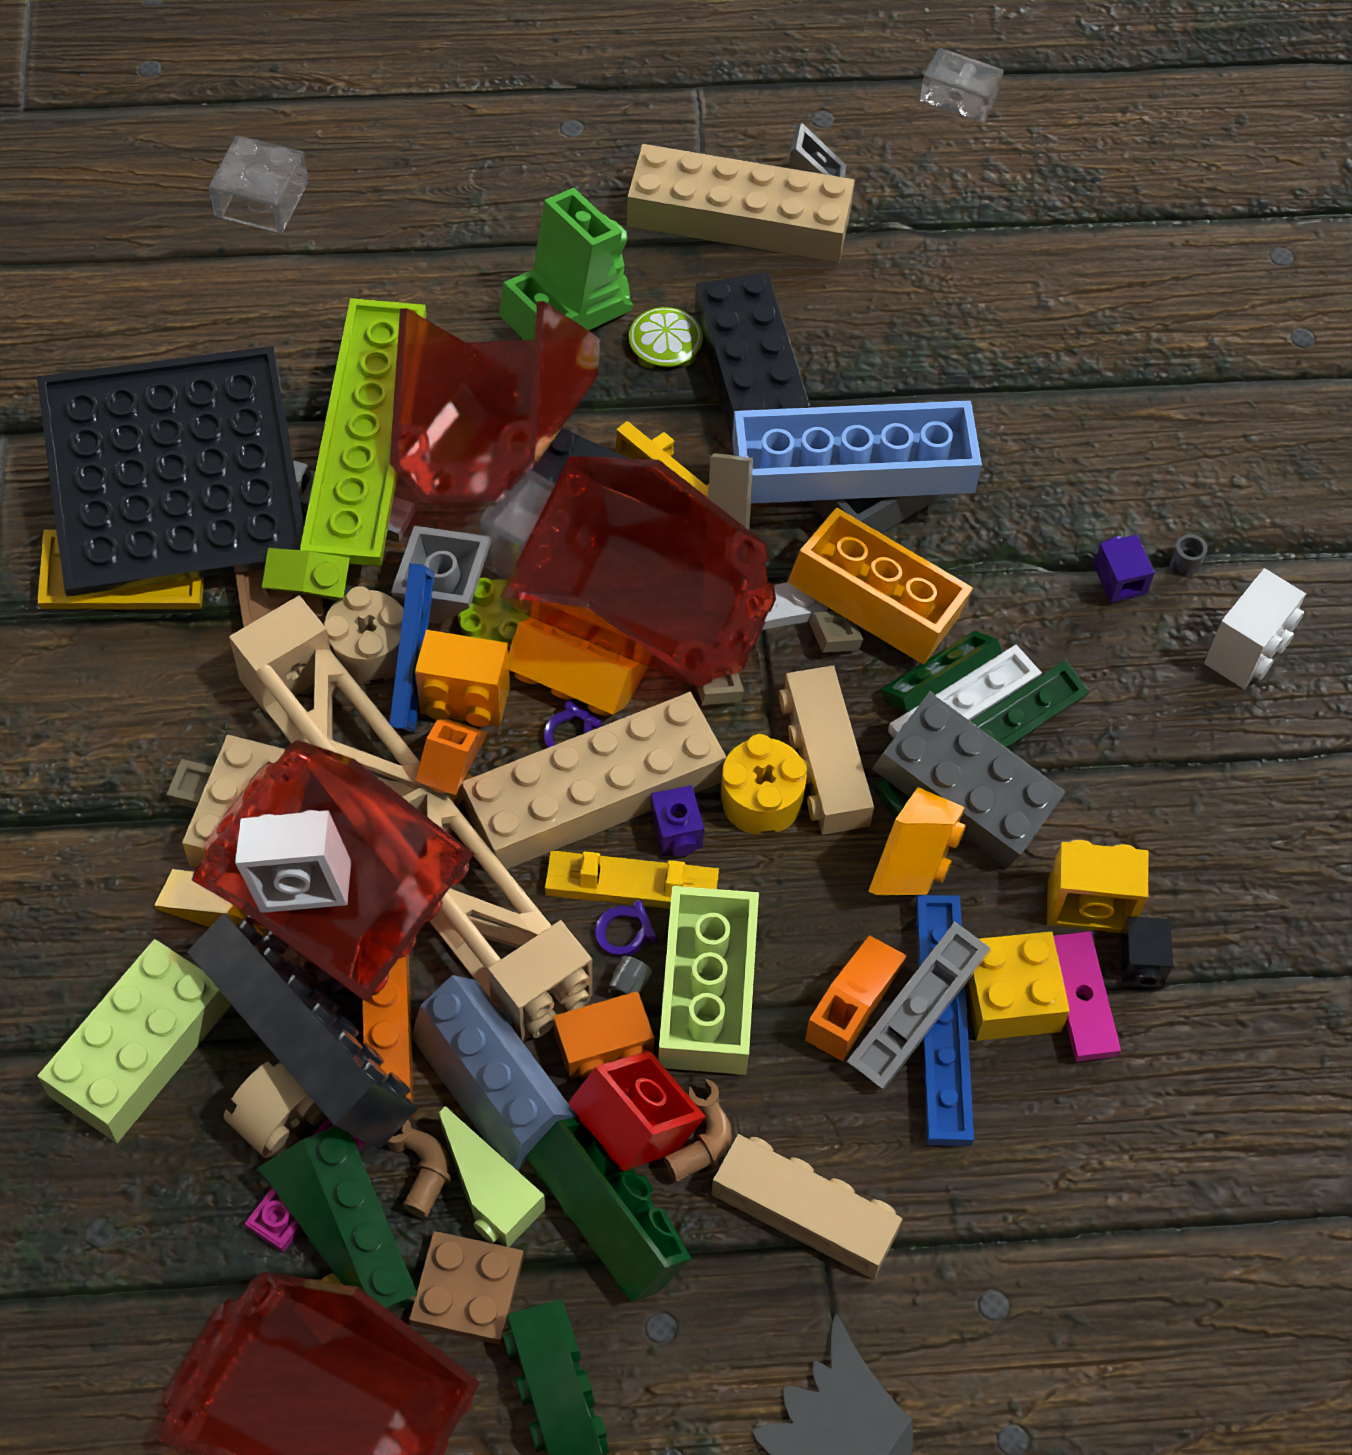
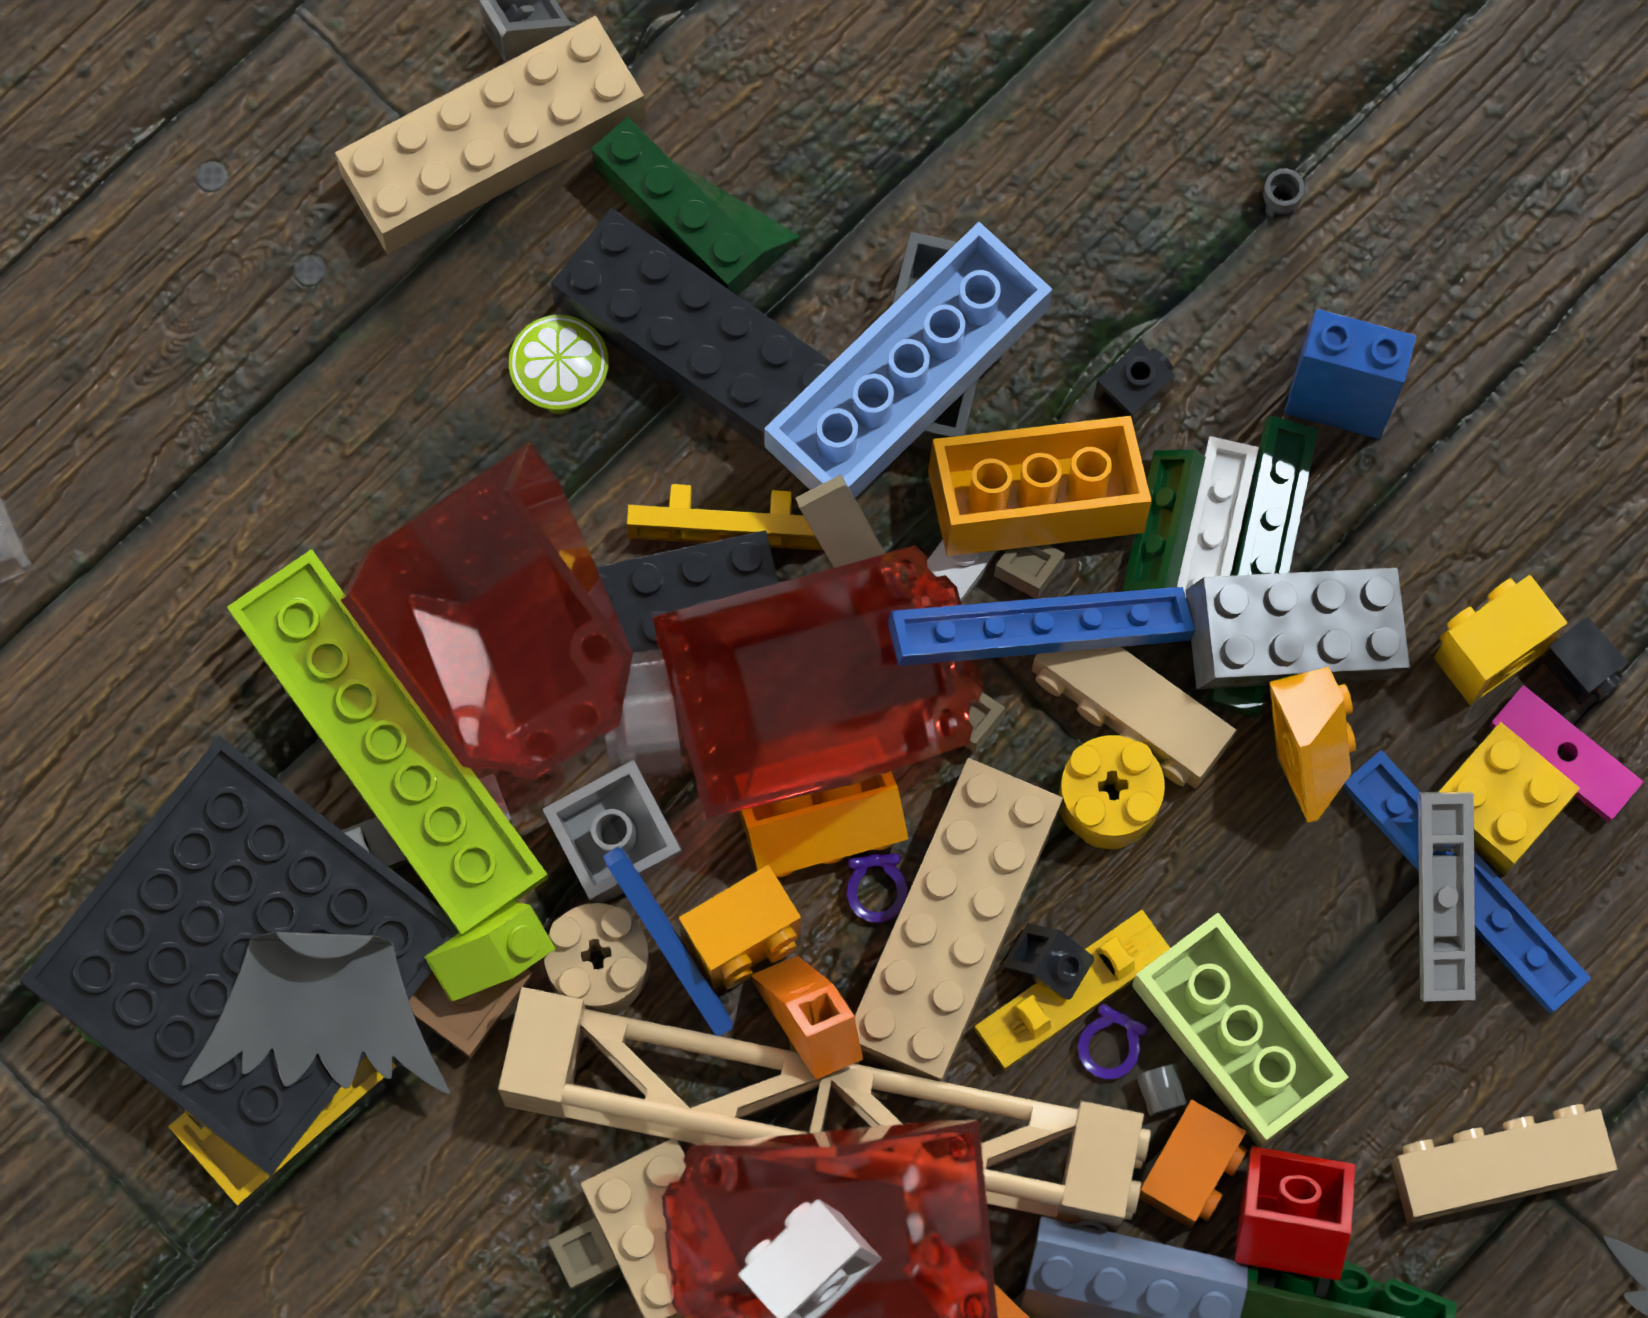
camera: 40 degrees left, 15 degrees up
(189, 519) = (321, 998): none -> dark grey piece
(489, 614) = (702, 840): lime dish -> none
(574, 268) = (424, 393): bright green brick -> none
(632, 850) = (1049, 959): none -> black bracket
(677, 821) = (1065, 896): dark purple brick -> none
(710, 1146) = (1373, 1181): medium nougat piece -> none
(804, 649) = (1040, 626): none -> blue plate
(816, 322) = (689, 212): none -> dark green wedge
(853, 997) = (1376, 930): orange slope -> none
(996, 585) = (1135, 382): none -> black brick
(1123, 568) = (1238, 263): dark purple brick -> none
(1137, 658) = (1349, 373): none -> blue slope
(1256, 629) = (1420, 234): white brick -> none

